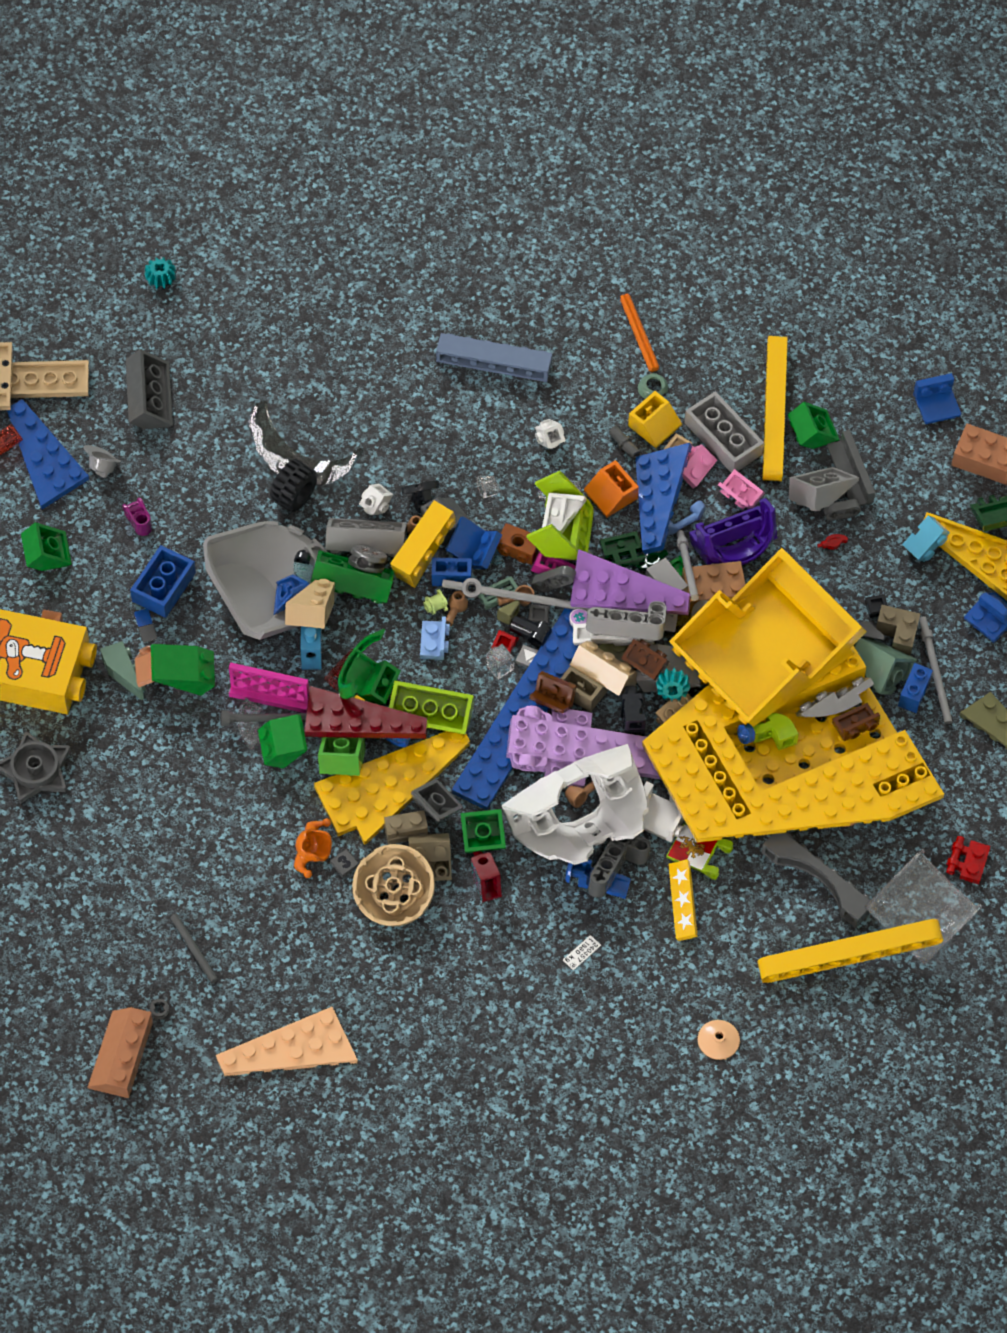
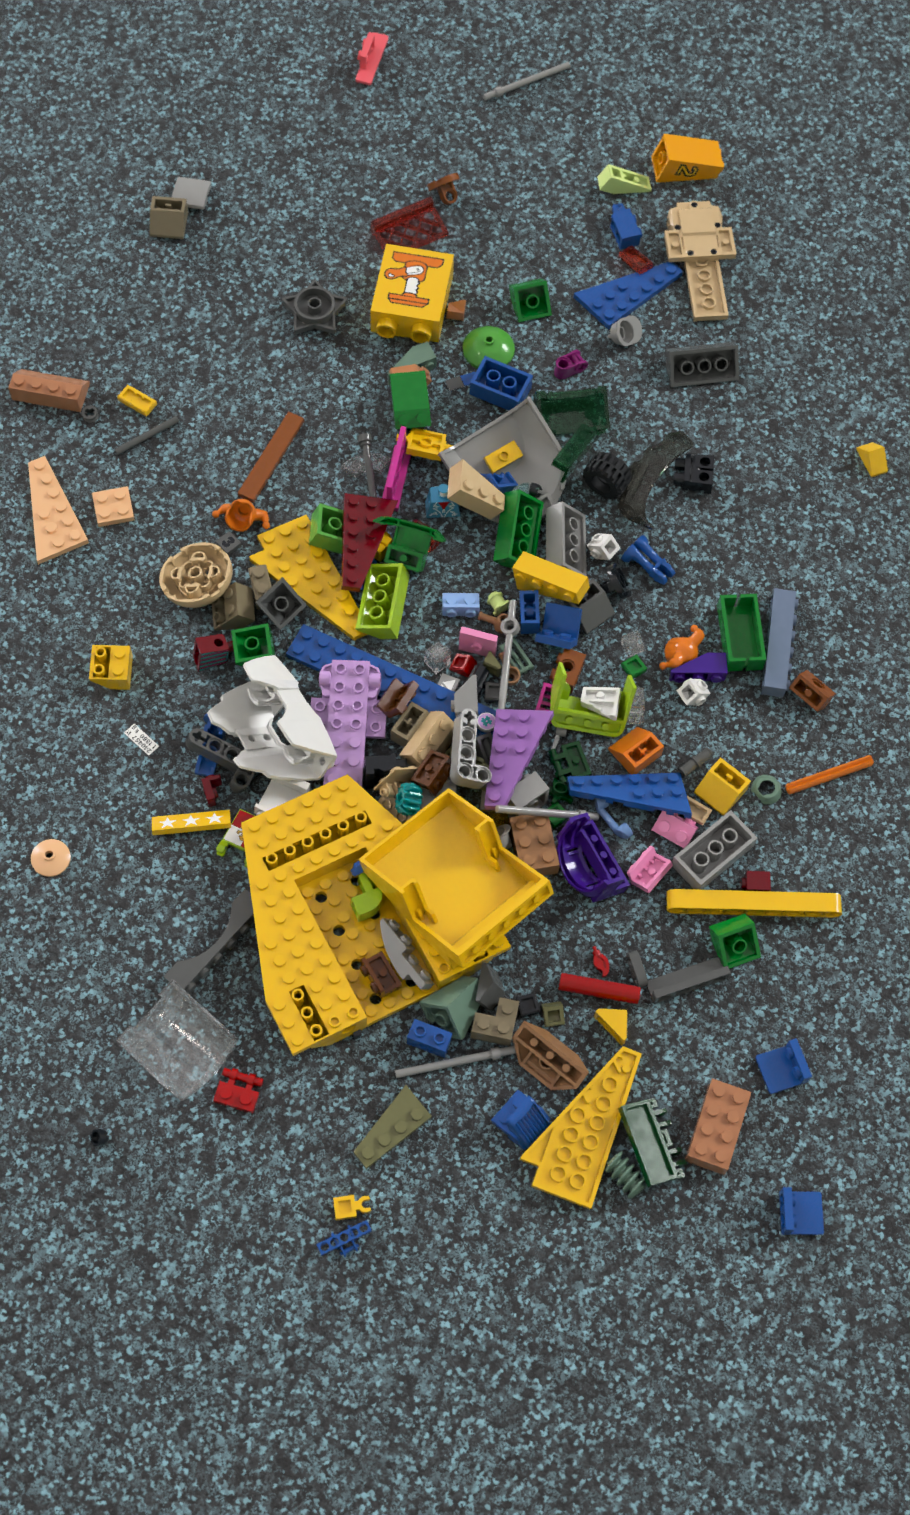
camera: 85 degrees right, 5 degrees up
(103, 605) = (476, 345): none -> bright green dish
(146, 957) = (137, 400): none -> yellow plate
(160, 272) = (833, 363): teal gear -> none
(198, 511) = (569, 409): none -> clear green windscreen
(233, 818) = (271, 457): none -> dark orange tile
(234, 651) = (425, 443): none -> yellow plate
(258, 584) = (503, 456): none -> yellow plate
(263, 510) = (574, 450): none -> clear green panel
(278, 252) = (874, 458): none -> yellow slope
(282, 741) = (341, 481): green slope -> none
(288, 411) = (697, 472): none -> black hips
(288, 982) = (113, 506): none -> light nougat plate
(367, 559) = (533, 538): flat silver head -> none
(384, 475) = (656, 571): none -> blue piece
(484, 386) = (741, 632): none -> green piece
(488, 619) = (477, 641): none -> bright pink plate
(499, 973) = (111, 666): none -> yellow slope
(500, 439) = (682, 649): none -> orange piece
(513, 488) = (634, 666): none -> green tile
(520, 425) = (705, 667): none -> dark purple slope
(552, 333) = (812, 690): none -> dark orange brick
(553, 579) = (525, 695): dark grey beam -> none
(555, 630) = (466, 697): none -> light grey slope
(648, 881) = (209, 786): none -> dark red bracket
(651, 700) = (389, 785): none -> tan hinge
(755, 403) = (756, 881): none -> dark red brick
(820, 487) = (659, 945): light grey slope -> none
(850, 950) = (128, 970): yellow beam -> none
(862, 543) = (599, 988): none -> red brick
(885, 585) = (553, 1014): none -> olive slope
(897, 531) = (614, 1022): none -> yellow slope
(927, 539) = (605, 1051): medium azure brick -> none
(936, 585) = (548, 1058): none -> medium nougat wedge

